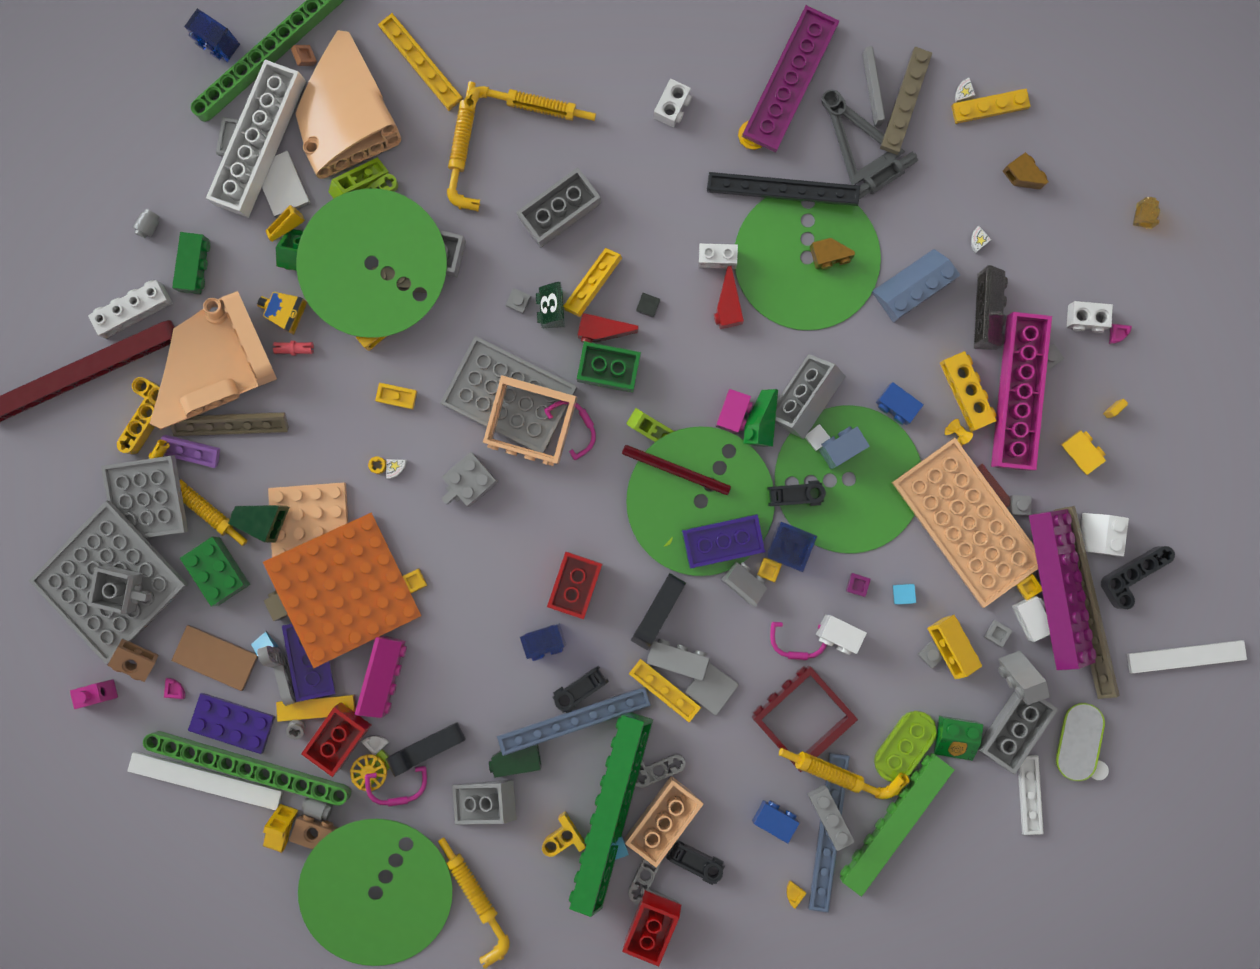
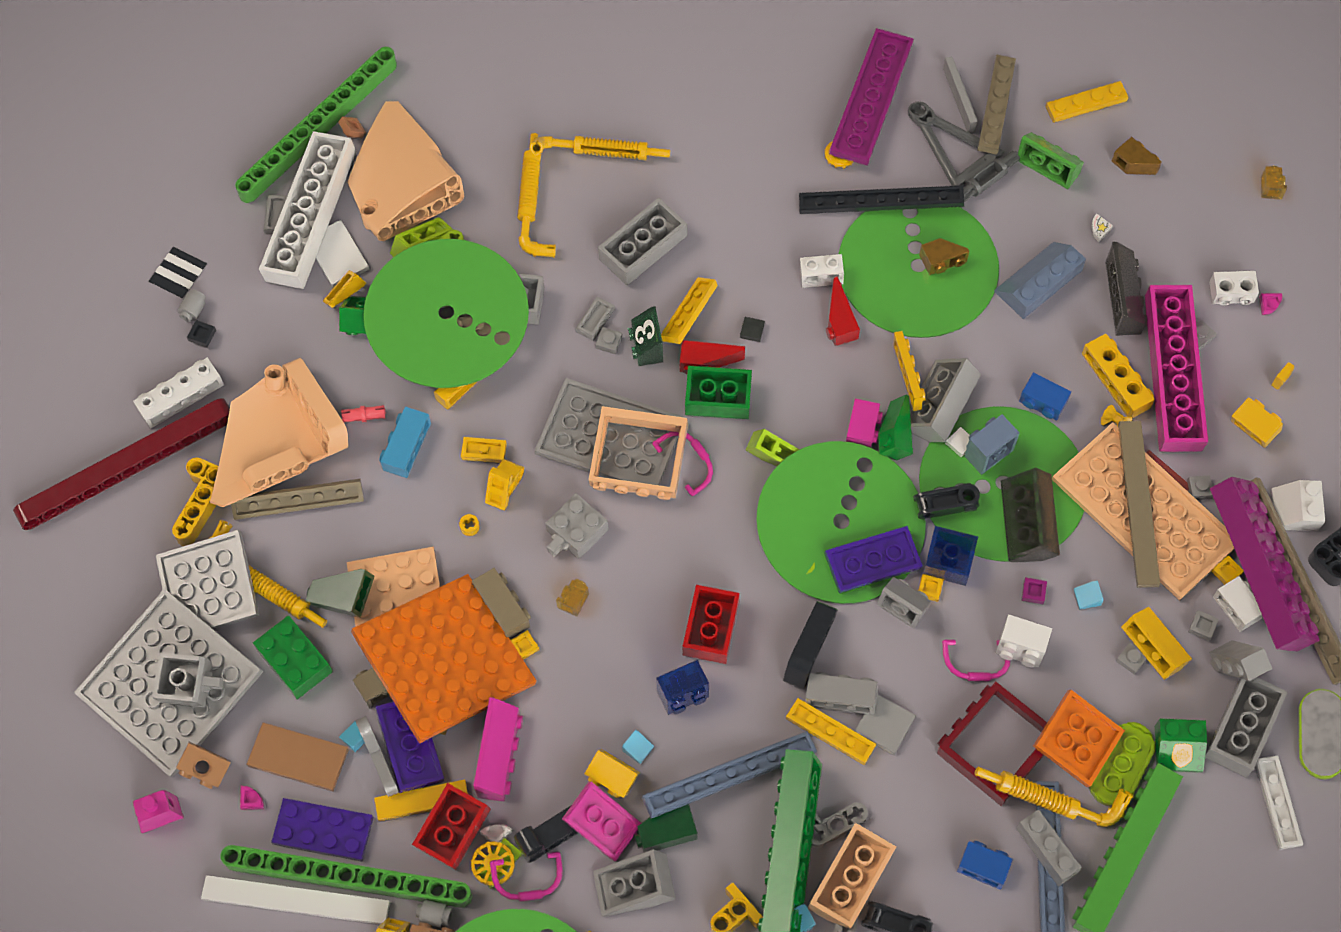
camera: 10 degrees left, 20 degrees down
(137, 186) = (177, 272): none -> black sticker
(154, 252) = (201, 333): none -> black plate
(191, 263) = (243, 339): green brick -> none
(192, 451) = (260, 532): medium lavender plate -> none
(211, 36) = (254, 116): clear blue brick -> none
(283, 310) = (350, 375): yellow torso -> none
(299, 725) = (404, 819): light grey bush -> none
(327, 380) = (405, 442): none -> dark azure brick
(394, 467) = (489, 525): white tile -> none
(398, 542) = (502, 603): none -> dark tan brick
(410, 430) = (502, 483): none -> yellow tile
(420, 62) = (476, 122): yellow tile -> none
(460, 544) = (573, 597): none -> clear yellow brick
(462, 749) = (602, 821): none -> dark pink tile
(475, 707) = (611, 773): none -> yellow brick
(500, 684) = (637, 747): none -> medium azure slope
(508, 277) = (595, 318): none -> light grey tile
(580, 689) = (731, 740): black piece -> none
(668, 102) = (747, 131): white brick -> none
(676, 470) = (809, 488): dark red axle -> none
(782, 373) = (909, 375): none -> yellow plate
(866, 517) = (1030, 516): none -> clear smoke slope
(872, 727) = (1078, 738): none -> orange plate
(945, 165) = (1049, 160): none -> bright green slope
(963, 518) = (1139, 504): none -> dark tan tile
(964, 91) = (1056, 90): white tile -> none

